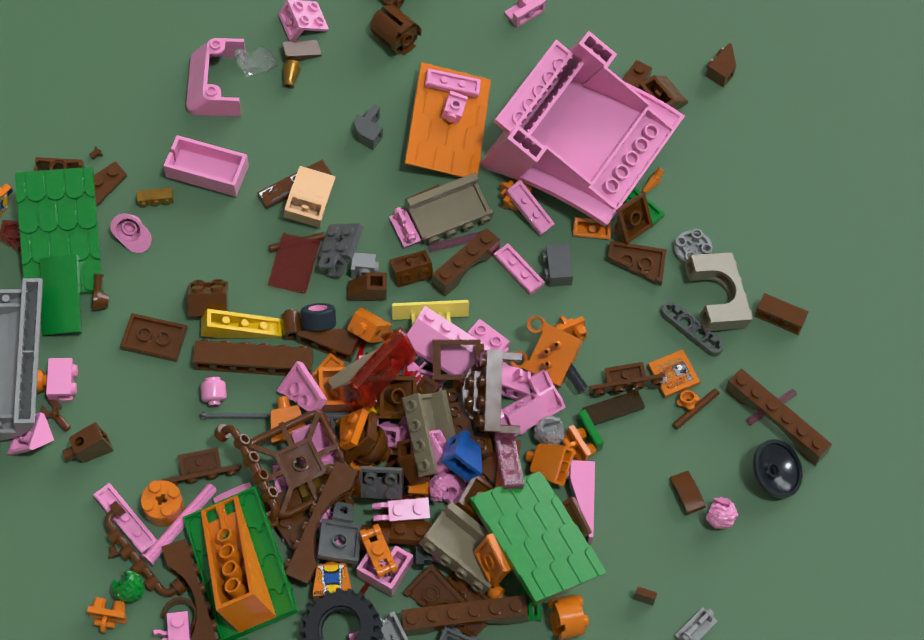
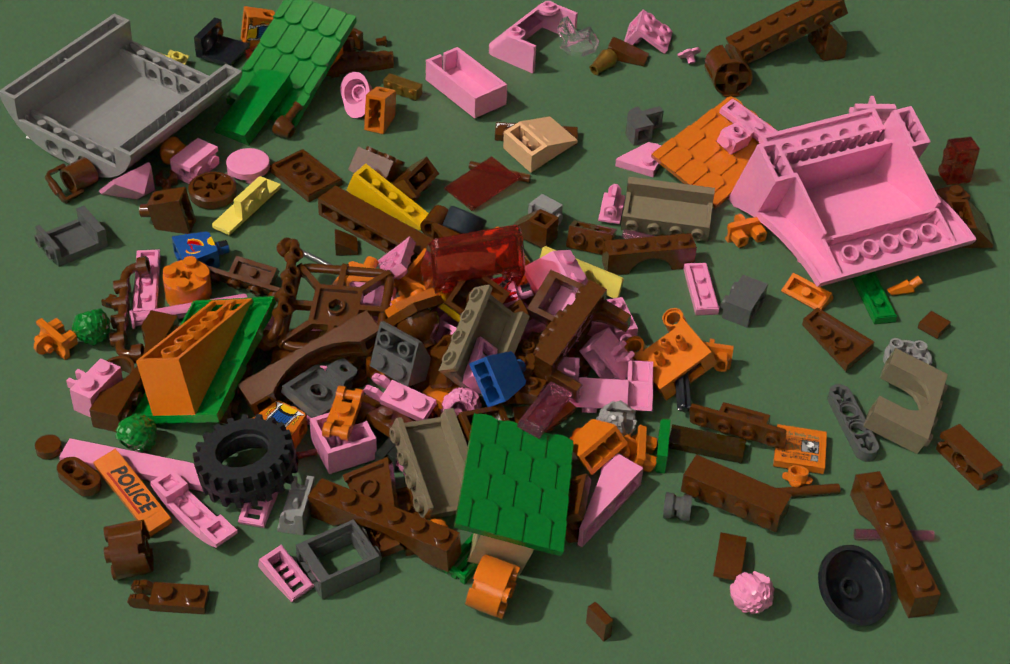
camera: 35 degrees right, 20 degrees down
(33, 514) = (72, 239): none -> dark grey panel
(101, 408) = (212, 190): none -> reddish brown wheel
(103, 356) = (247, 164): none -> bright pink tile
(137, 397) = (246, 204): none -> light yellow bracket
(142, 467) = (201, 247): none -> blue torso
(159, 229) = (380, 103): none -> orange torso
(213, 391) = (317, 231): bright pink head -> none
(240, 387) = (345, 243): none -> reddish brown slope
(247, 294) = (416, 178): none -> reddish brown brick
(335, 251) = (533, 187): dark grey plate -> none
(351, 24) = (689, 54): none -> bright pink plant
(392, 162) = (640, 160): none -> bright pink wing
(492, 560) = (451, 482): orange tile -> none
(530, 207) = (751, 244): bright pink tile -> none
(622, 32) = (959, 160): none -> clear red brick
(631, 475) = (677, 506): none -> dark grey wheel
(633, 218) = (854, 294): reddish brown slope -> none
(662, 441) = (736, 493): none -> reddish brown brick
(692, 204) = (934, 324): none -> reddish brown tile

